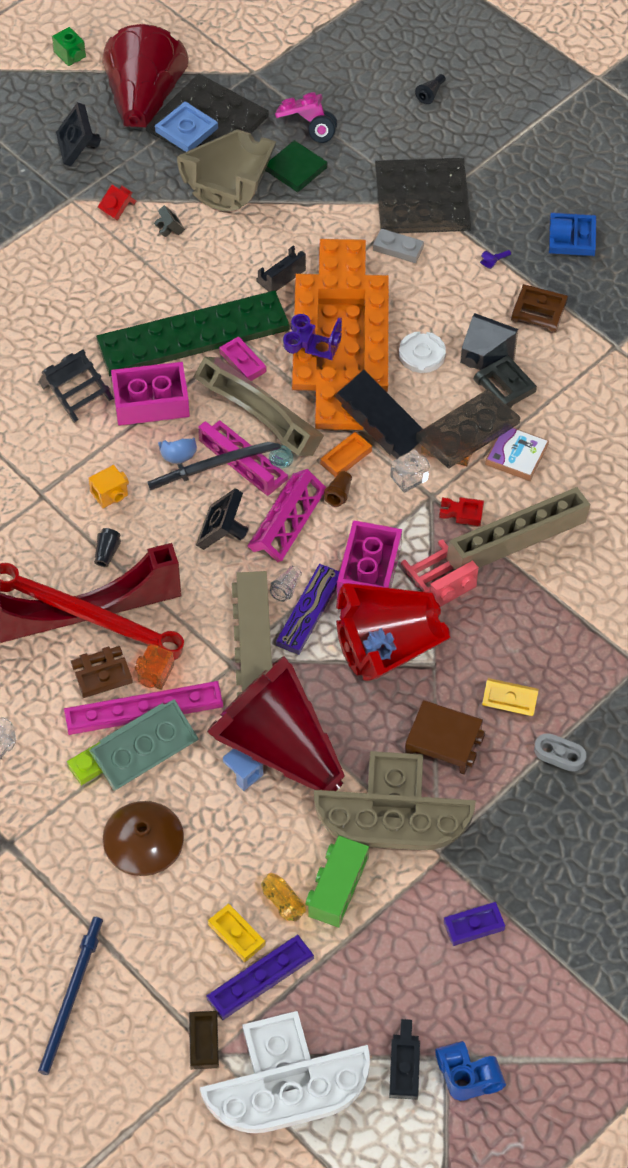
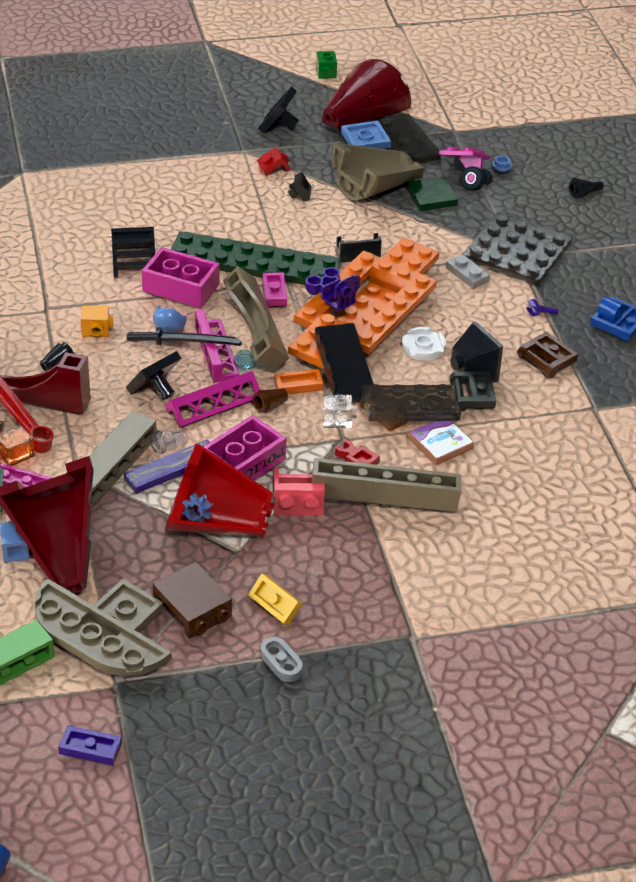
camera: 30 degrees right, 15 degrees down
(334, 96) = (502, 164): none -> medium blue plate

